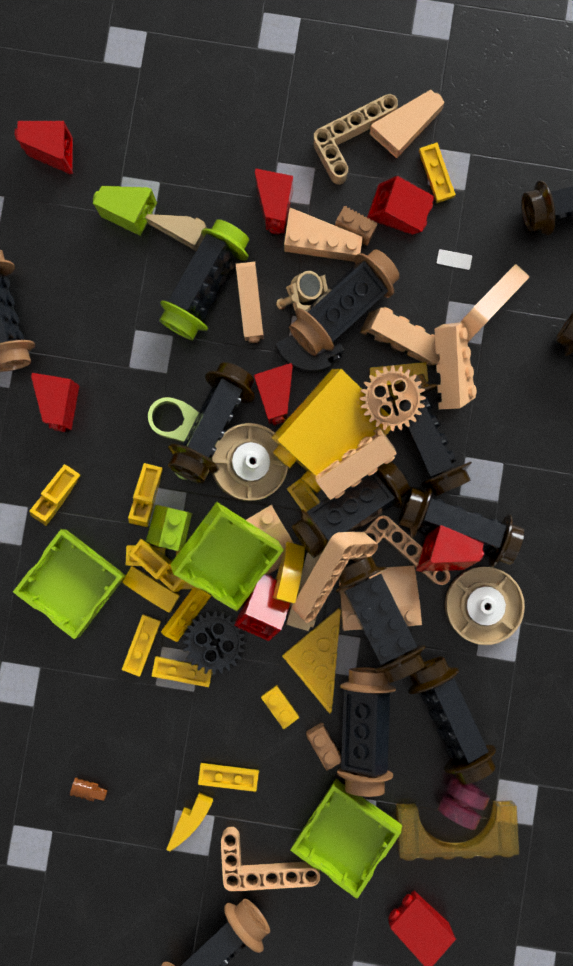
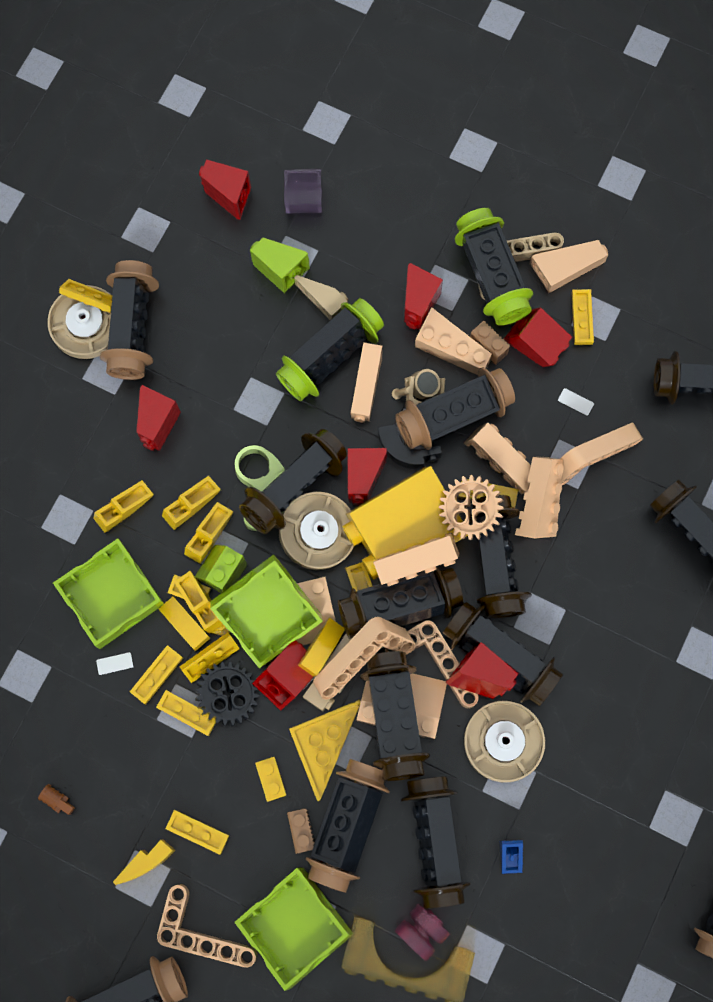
camera: 20 degrees right, 10 degrees down
(98, 646) = (114, 663): none -> white sticker
(118, 471) = (190, 502): none -> yellow slope
(125, 125) = (303, 191): none -> clear purple piece
(338, 146) = (493, 266): none -> brick
(521, 705) = (511, 856): none -> blue slope

